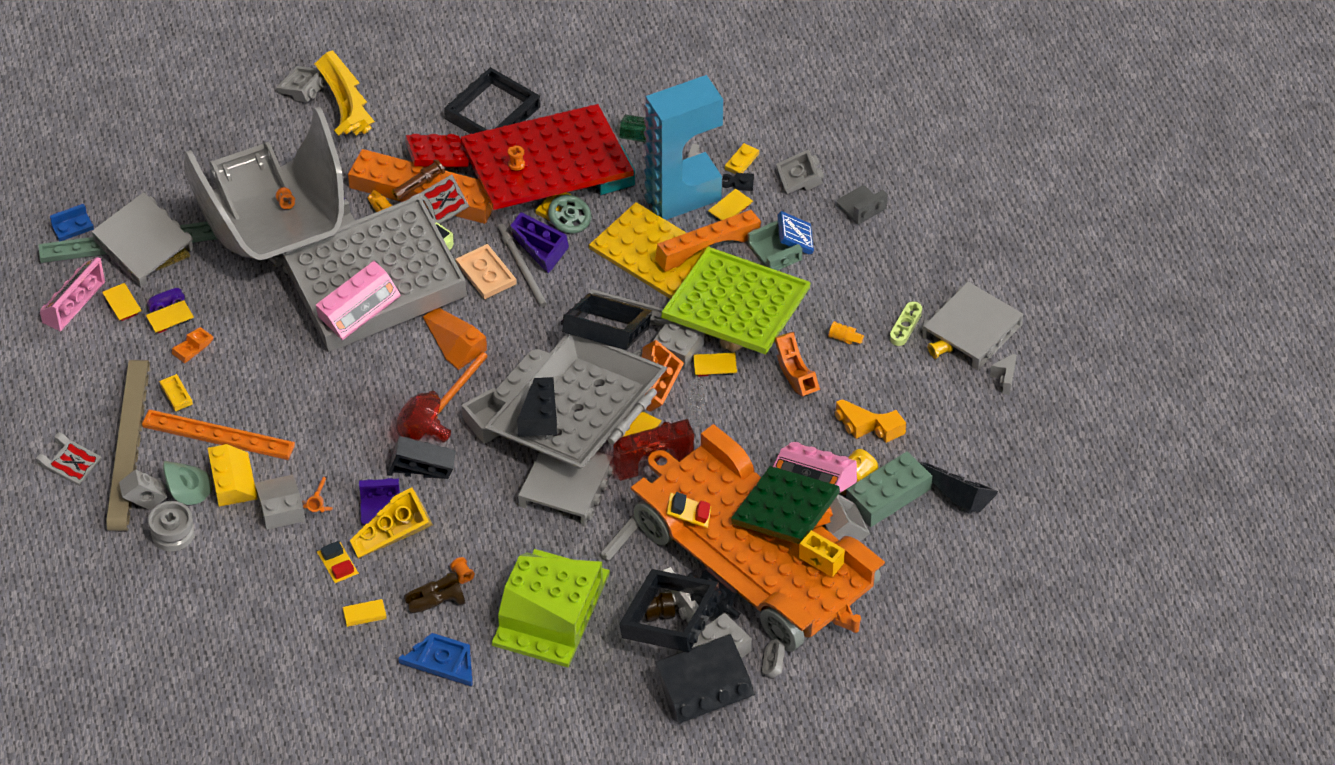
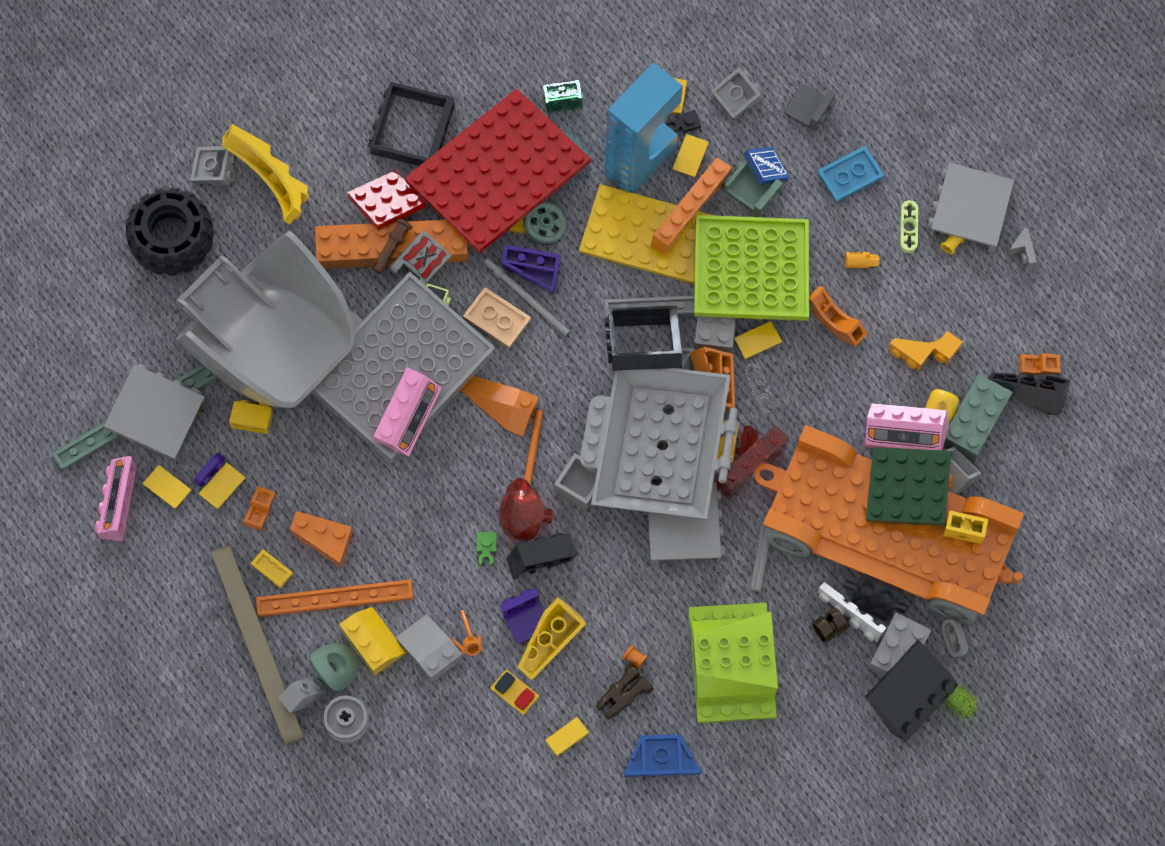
camera: 25 degrees left, 20 degrees up
(71, 222) = (70, 415): blue bracket -> none
(71, 462) = (212, 682): light grey flag -> none
(225, 274) = (251, 417): none -> yellow brick
(235, 381) = (323, 536): none -> orange wedge
(237, 130) = (177, 254): none -> black tyre
(284, 203) = (270, 313): orange bush -> none
(376, 439) = (486, 544): none -> bright green plate
(378, 201) = (360, 279): light orange hinge -> none
(516, 158) = (480, 189): orange bush -> none
(539, 410) = (638, 468): black wedge -> none
(632, 628) = (855, 671): black window -> none
(688, 509) = (824, 525): piece -> none
(751, 712) = (962, 702): none -> clear neon green brick
(872, 266) = (850, 174): none -> dark azure plate
(980, 472) = (1039, 365): none -> orange slope

